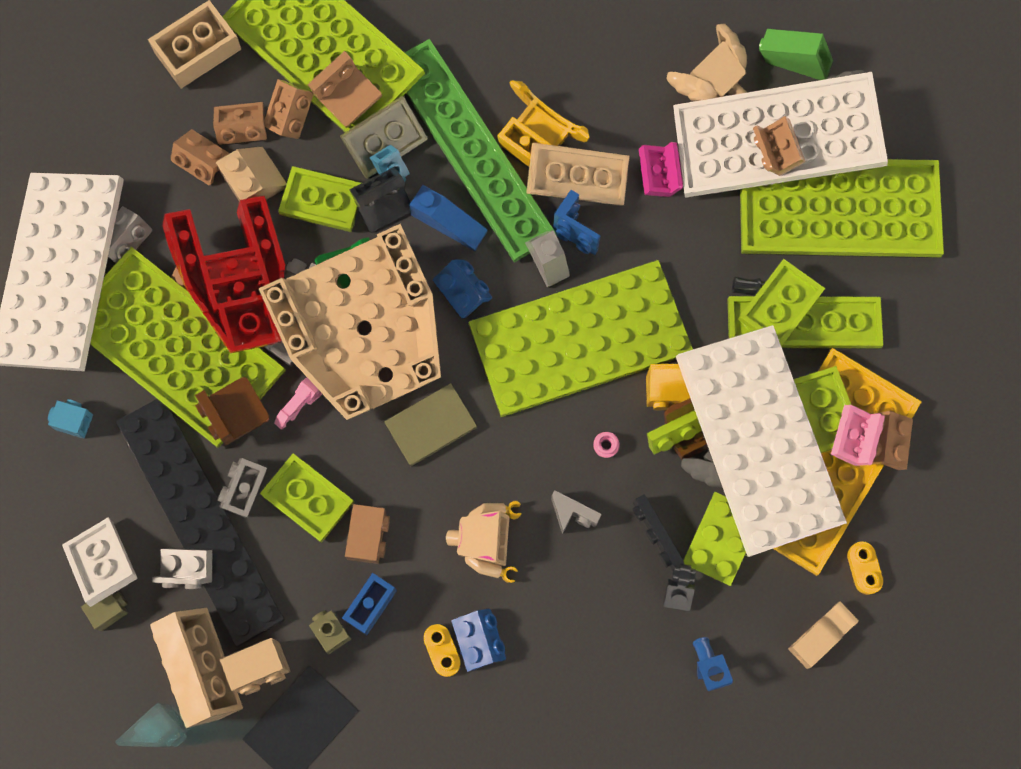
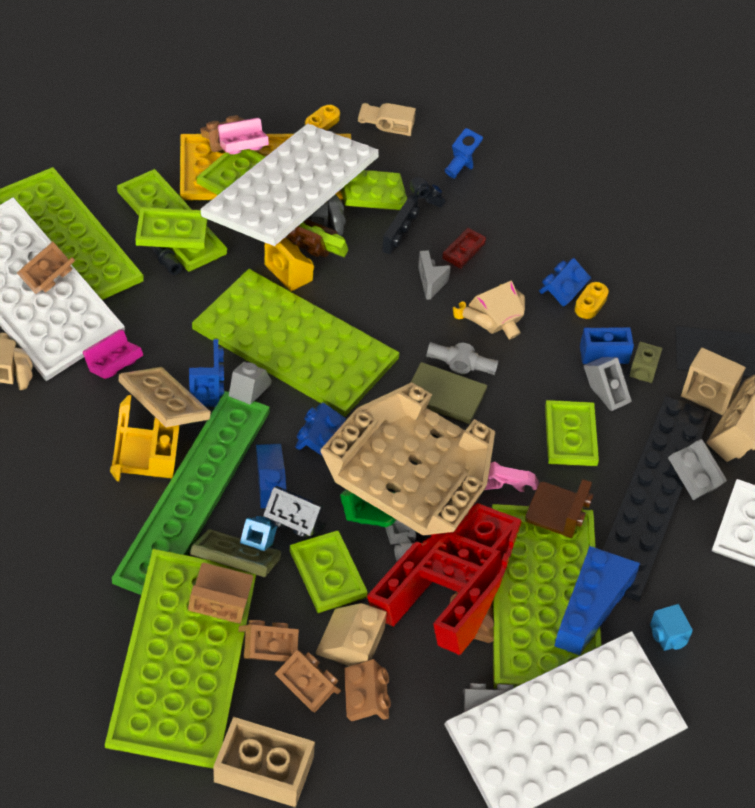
camera: 130 degrees left, 25 degrees down
(132, 371) = (595, 594): none -> blue wedge
(242, 488) = (606, 468): light grey brick -> none
(334, 575) = (608, 382): none -> light grey slope
(366, 534) = (561, 380): medium nougat brick -> none
(454, 465) = (462, 358): none -> light grey pin
(587, 573) = (464, 248): none -> clear red plate
(609, 437) = (363, 283): bright pink plate -> none

